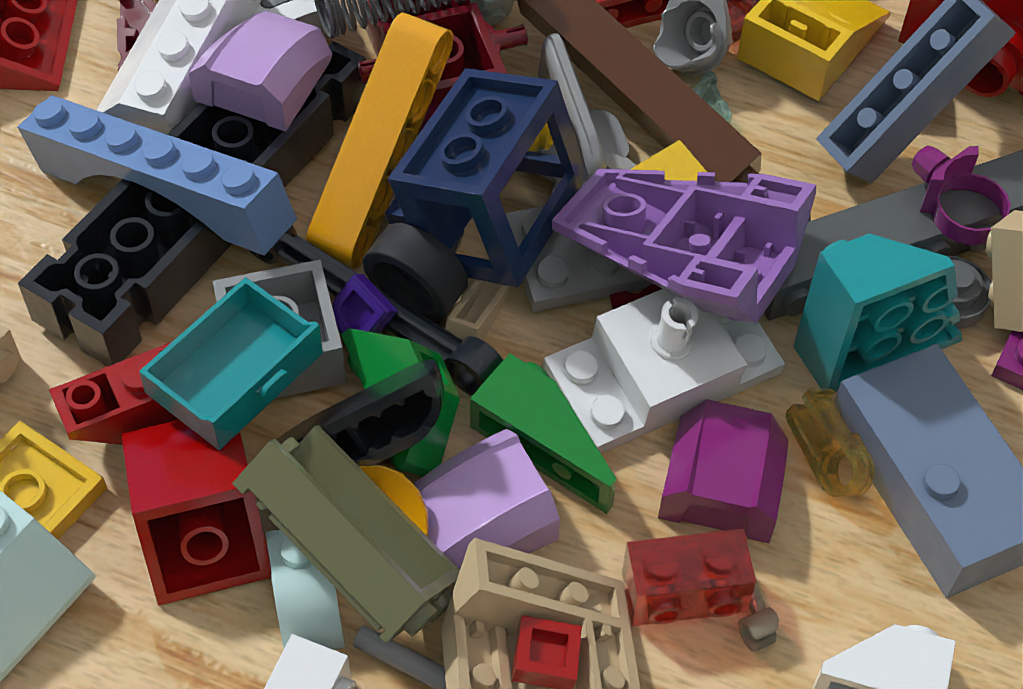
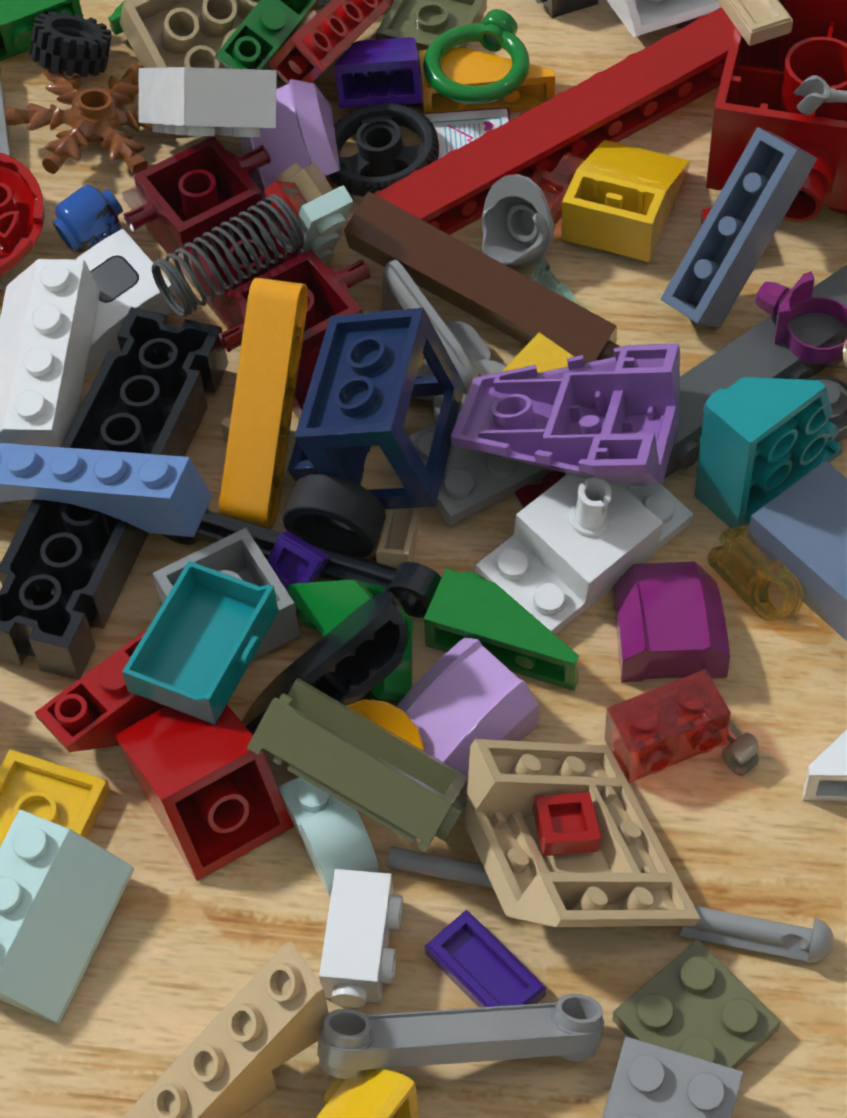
camera: 10 degrees left, 0 degrees up
(262, 68) = (130, 362): lavender slope -> none

